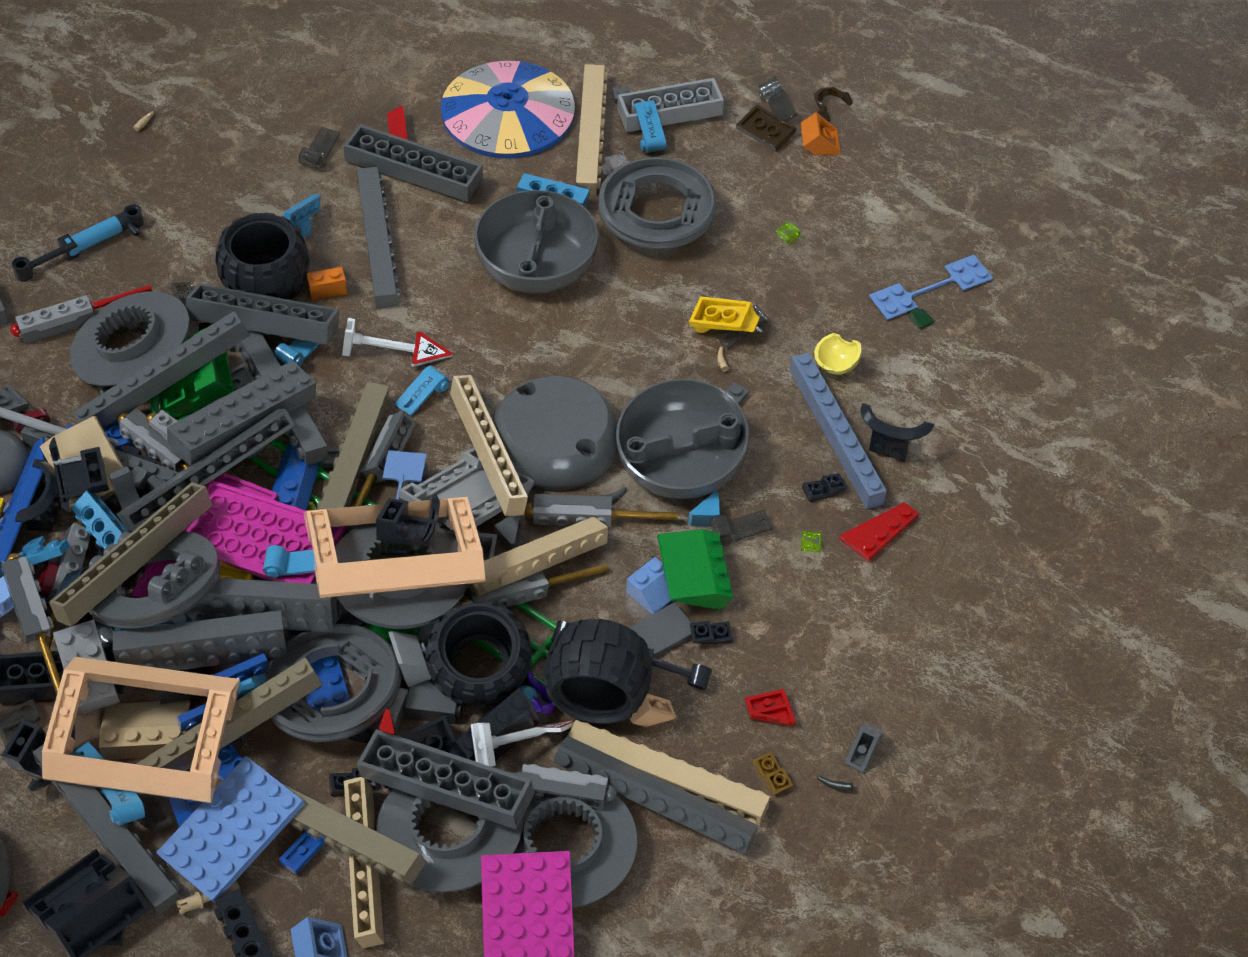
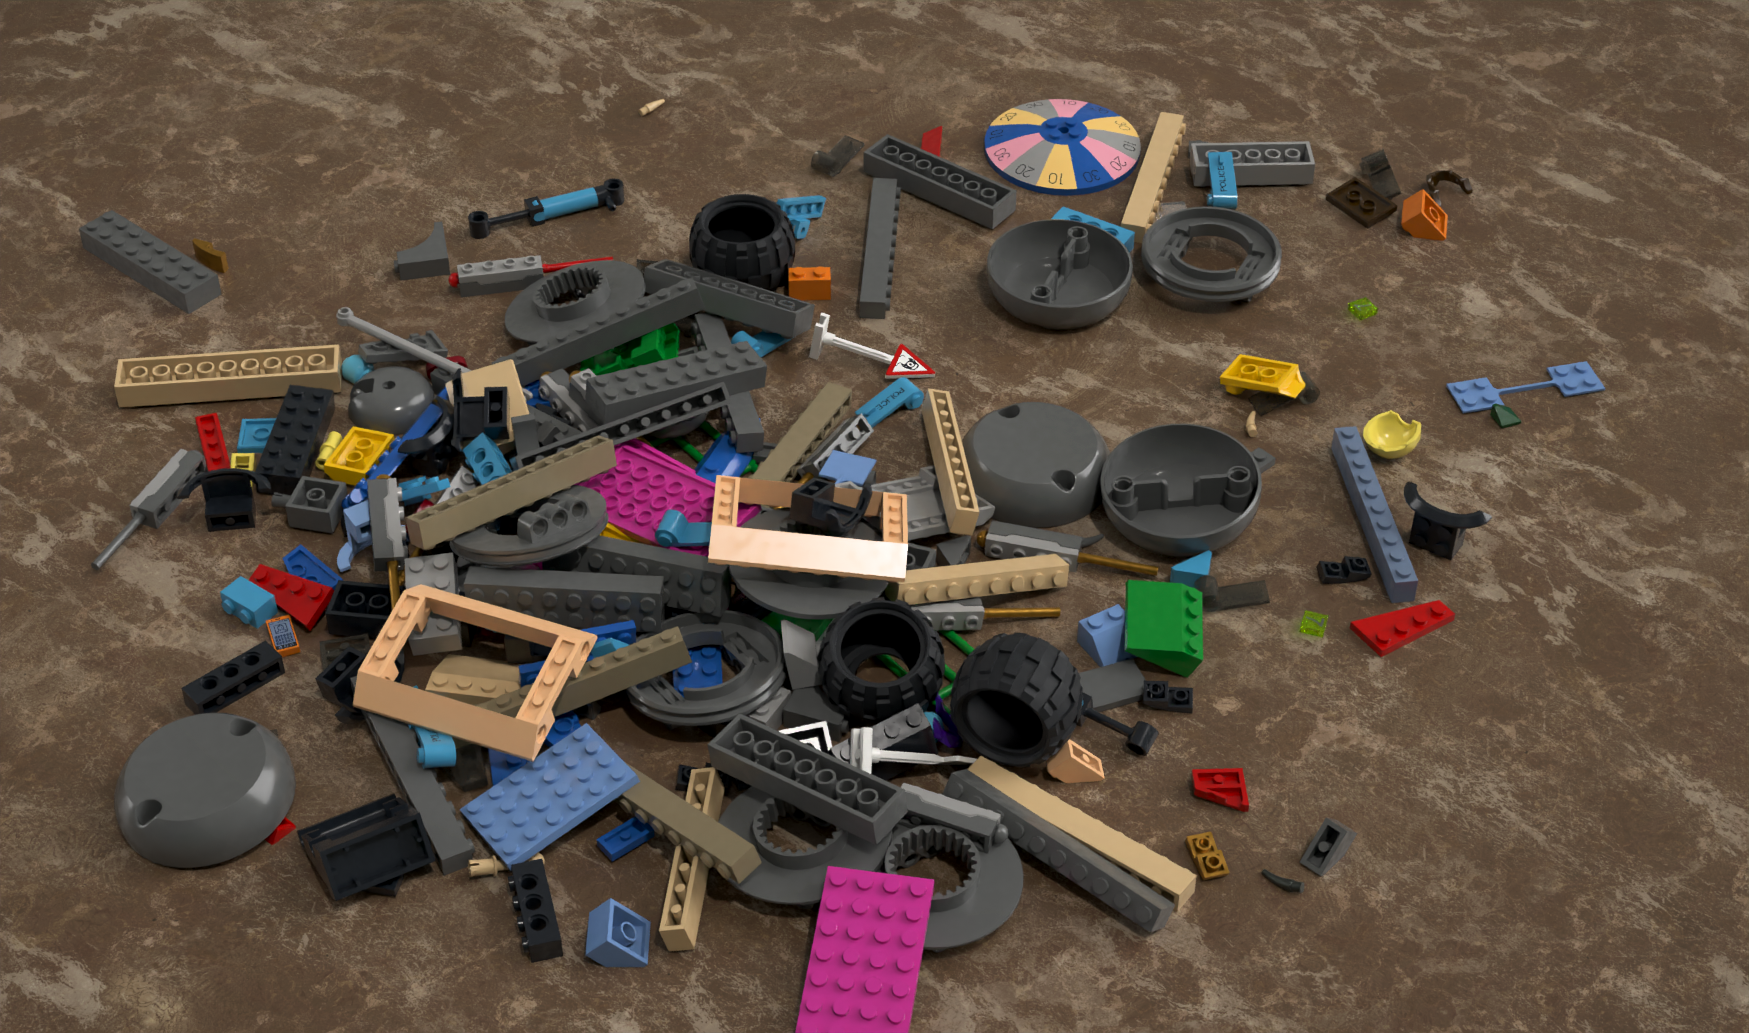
camera: 15 degrees right, 10 degrees down
(387, 723) = (754, 707): red slope -> none

